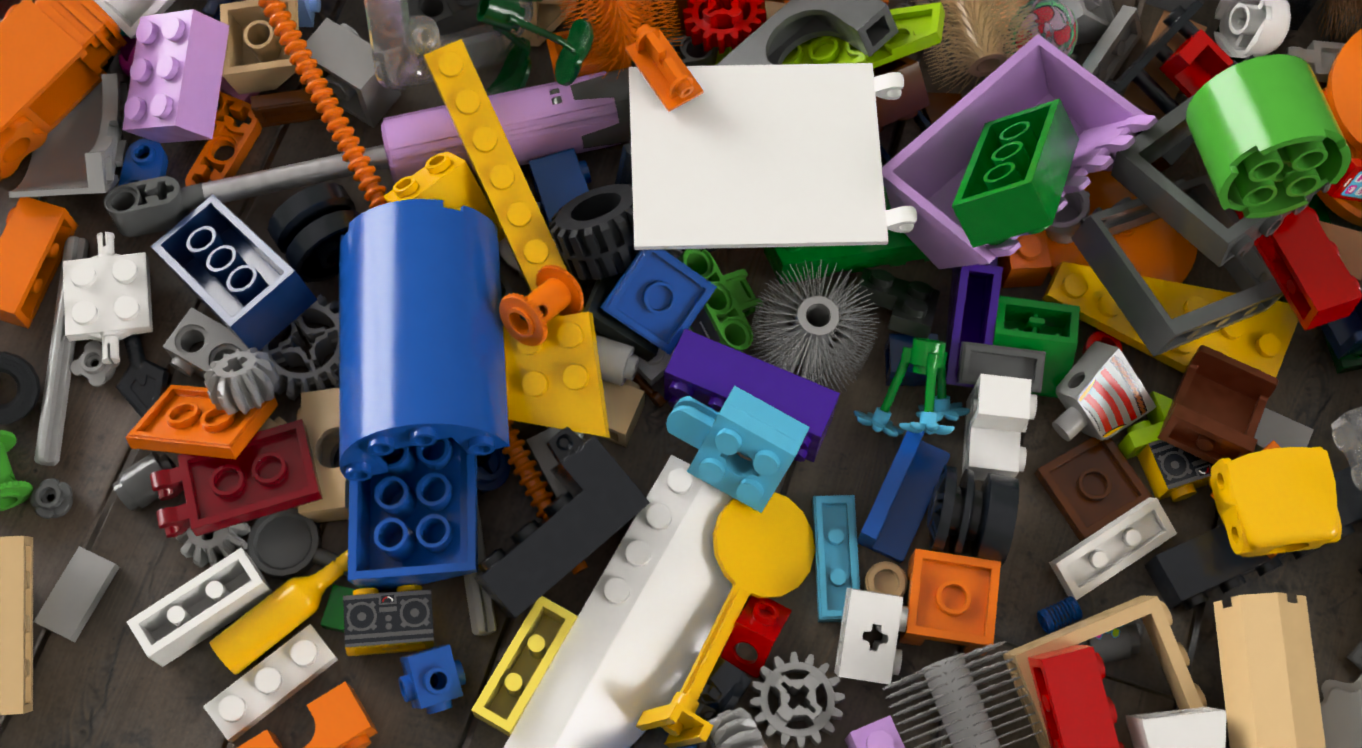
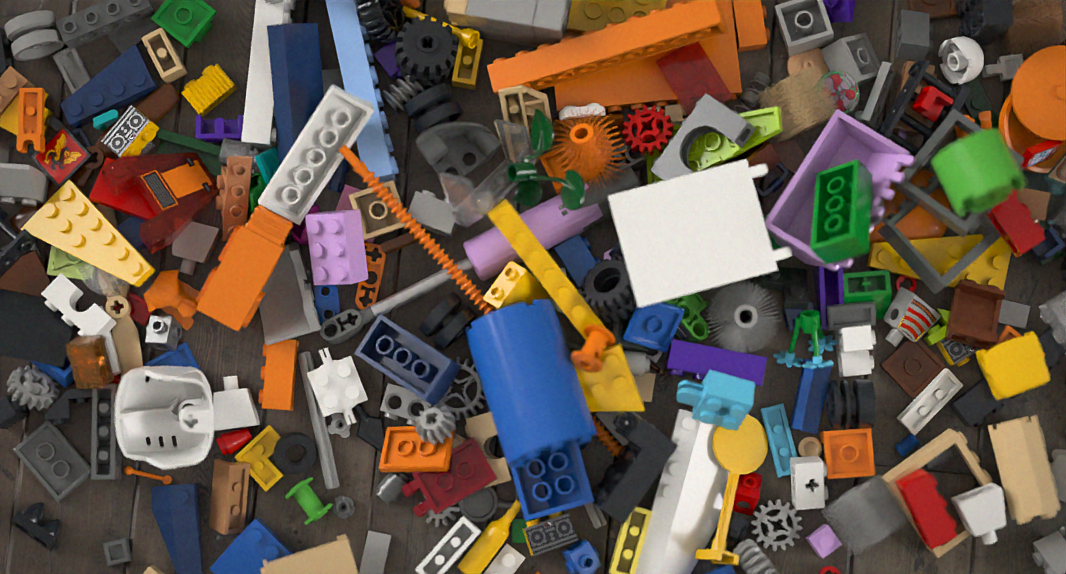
camera: 10 degrees left, 15 degrees up
(663, 68) = (629, 195): orange hinge -> none

